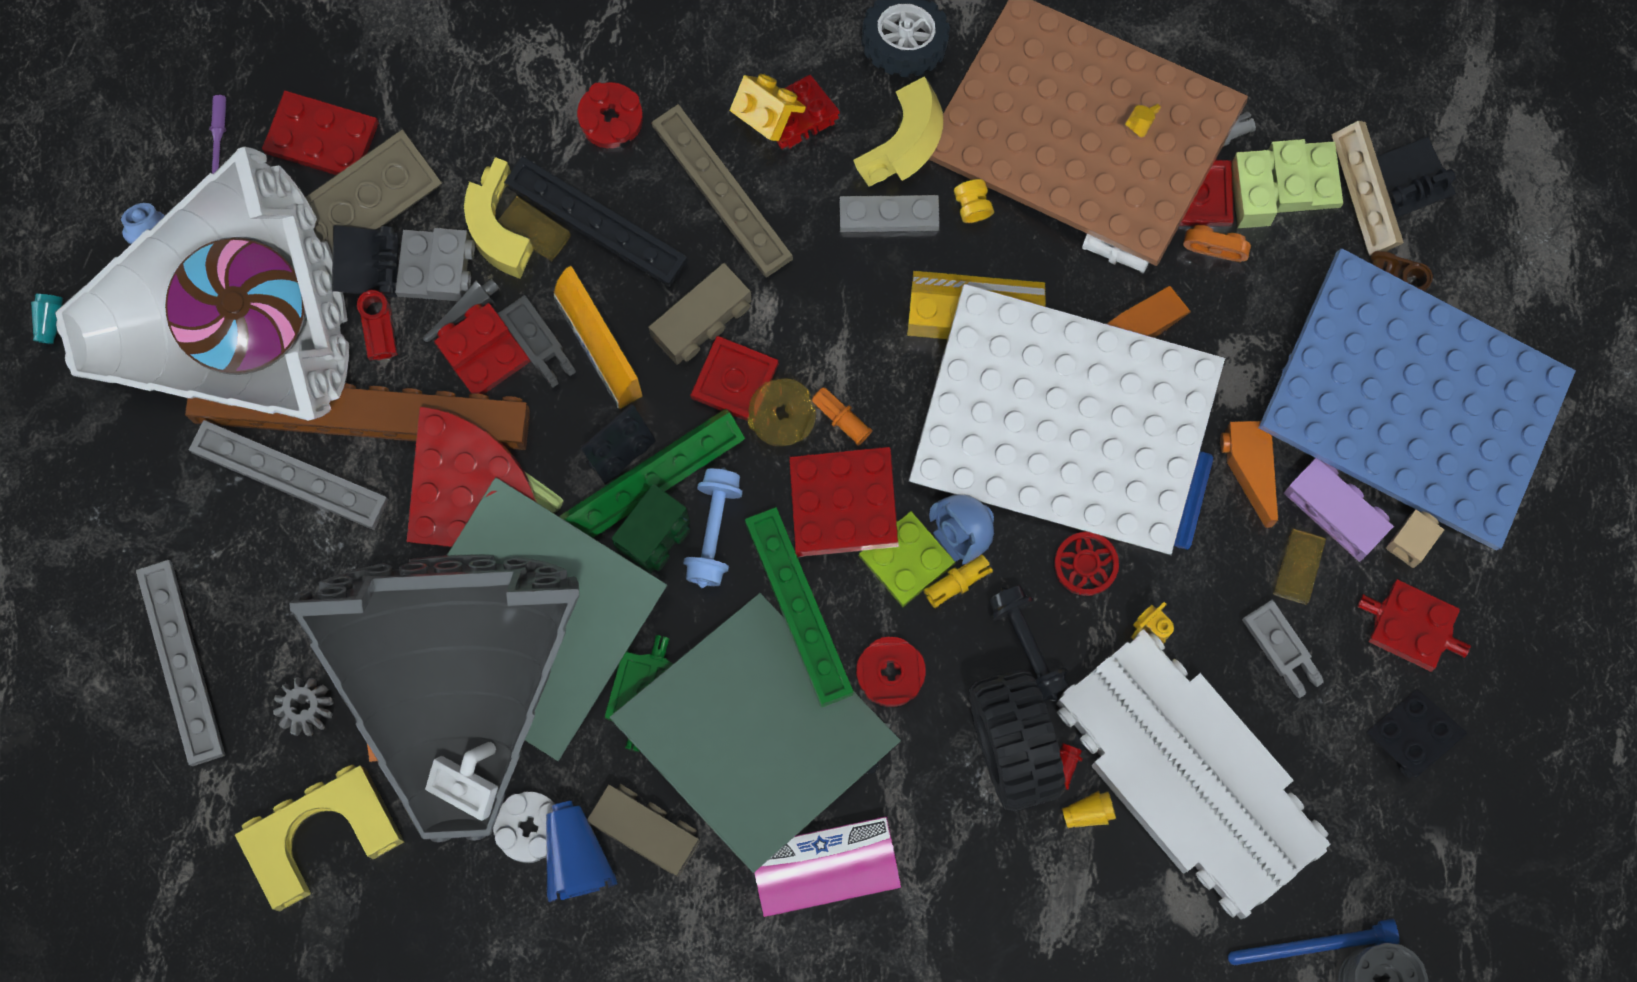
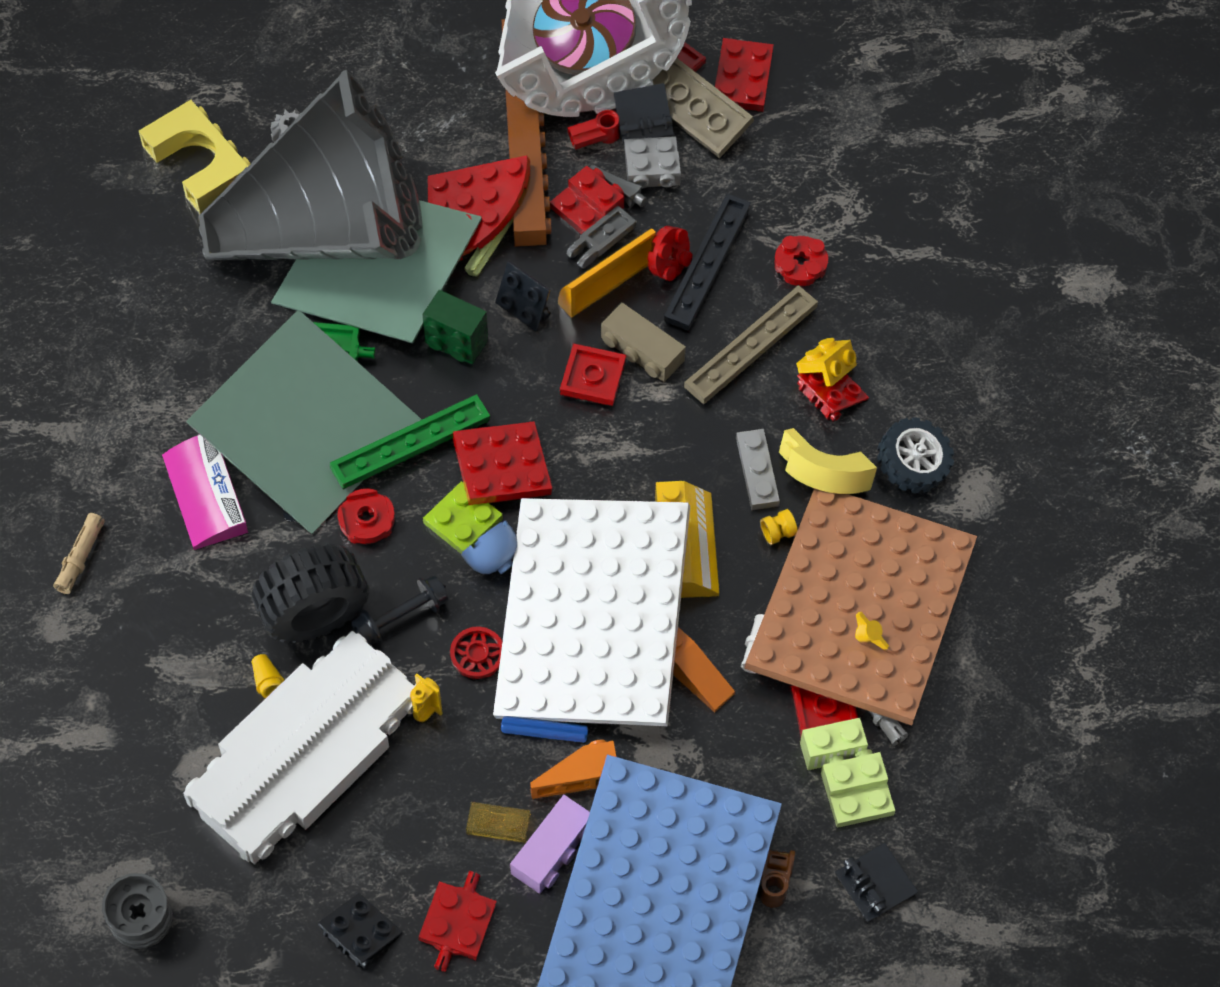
camera: 80 degrees right, 15 degrees down
(180, 663) = (317, 53): light grey plate -> none
(217, 127) = (732, 10): medium lavender piece -> none
(288, 475) = (468, 96): light grey plate -> none
(461, 785) = (238, 229): white plate -> none
(496, 244) = (690, 186): light yellow arch -> none
(509, 835) = (214, 275): white plate -> none
(544, 233) = (698, 220): clear yellow plate -> none
(573, 854) = (194, 311): blue cone -> none
(584, 257) = (669, 253): none -> red plate
(644, 829) = (220, 358): dark tan brick -> none
(661, 469) = (507, 331): green plate -> none
(720, 485) = (430, 372): light blue piece -> none
(798, 405) = (560, 394): clear yellow plate -> none
(841, 415) = (575, 455): orange axle -> none
(957, 581) = (448, 555): yellow pin -> none
(1070, 758) = (302, 653): red pin -> none
(1205, 241) = (779, 710): orange plate -> none
(1282, 646) = (424, 812): light grey hinge -> none
(1367, 188) = (856, 840): tan plate -> none
(1384, 932) = (182, 918): blue piece -> none
(1415, 538) = (535, 911): tan brick -> none

